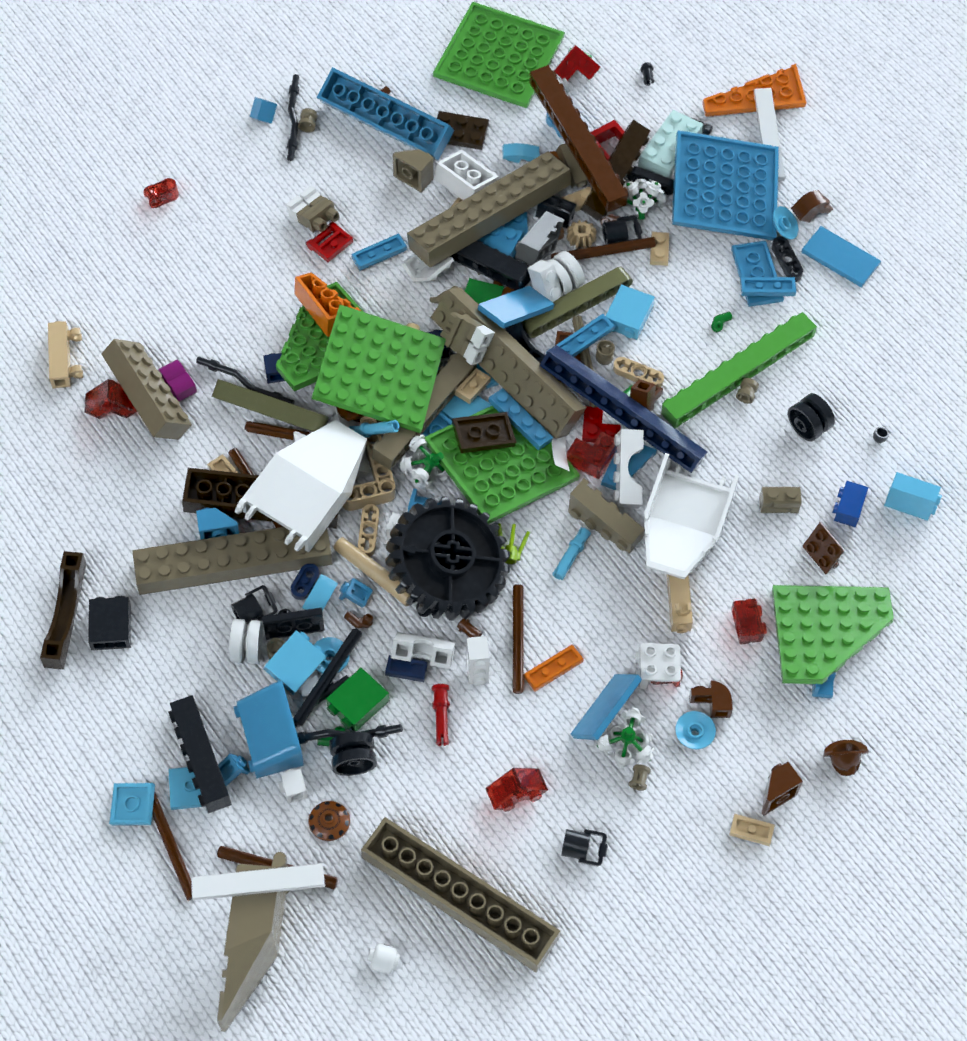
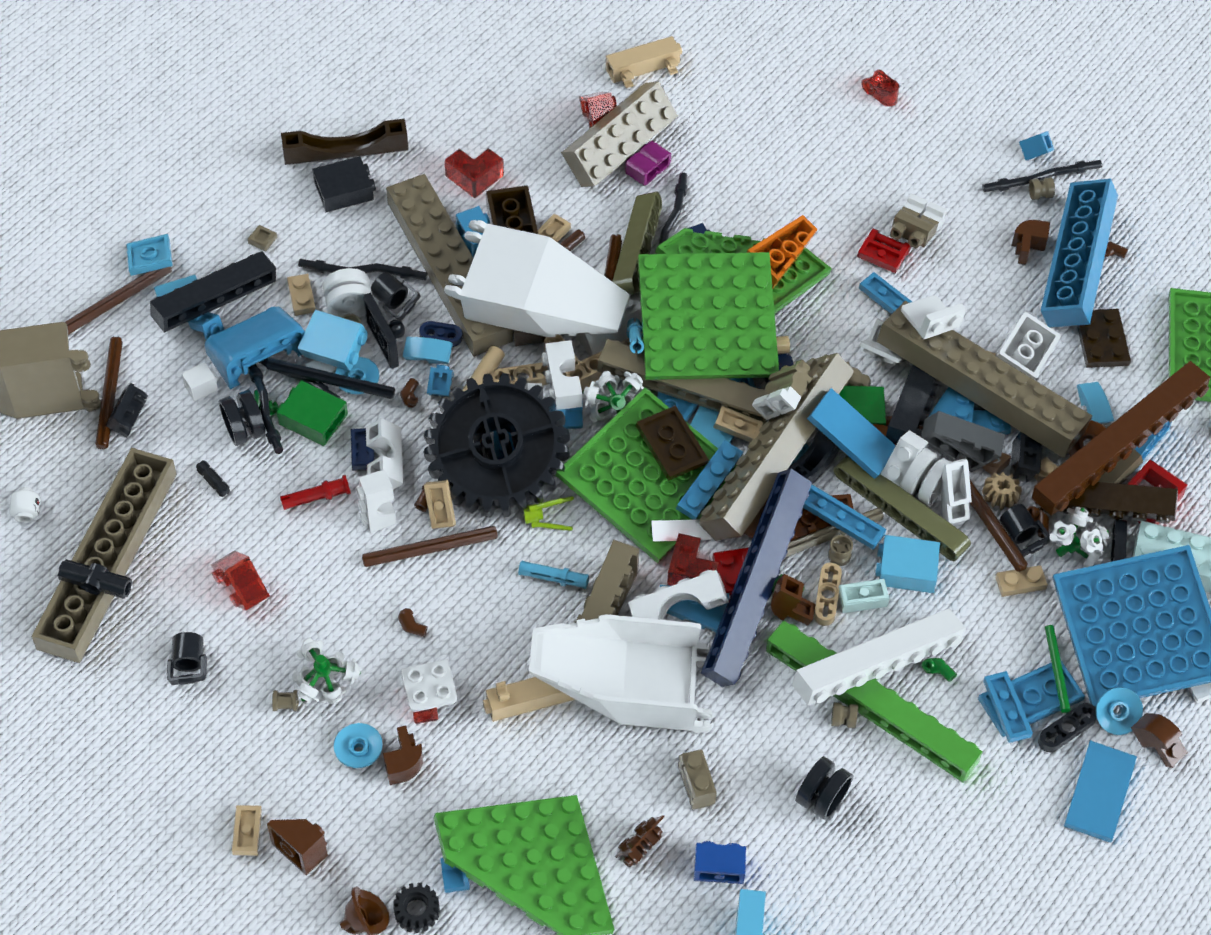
camera: 75 degrees right, 5 degrees down
(139, 516) = (474, 174): none -> clear red brick
(143, 705) = (262, 238): none -> dark tan tile
(196, 661) = (405, 272): none -> black bar
(220, 685) = (301, 294): none -> tan plate
(257, 881) = (47, 341): white tile -> none
(303, 853) = (127, 410): none -> black hinge
(331, 829) = (173, 432): dark orange dish -> none
(354, 144) = (1030, 235): none -> reddish brown brick
(377, 495) = (560, 359): none -> white arch
(399, 795) = (213, 478): none -> black axle
(414, 168) = (1016, 298): dark tan slope -> none
(437, 217) = (932, 317): none -> white bracket
(487, 617) = (439, 504): none -> tan plate
(498, 899) = (95, 578): none -> black piece
(553, 668) = (403, 589): orange tile -> none
(587, 258) = (955, 491): none -> white slope
(588, 670) = (409, 625): none -> reddish brown arm
(606, 706) = (359, 644): dark azure tile -> none
(648, 348) = (863, 595): none -> light aqua slope
(714, 350) = (878, 657): none -> white brick
(742, 248) = (1057, 669): none -> green bar
(748, 621) = (517, 775): clear red brick -> none
(839, 728) = (420, 921): none -> black tyre
(880, 434) = (841, 886): black hinge -> none

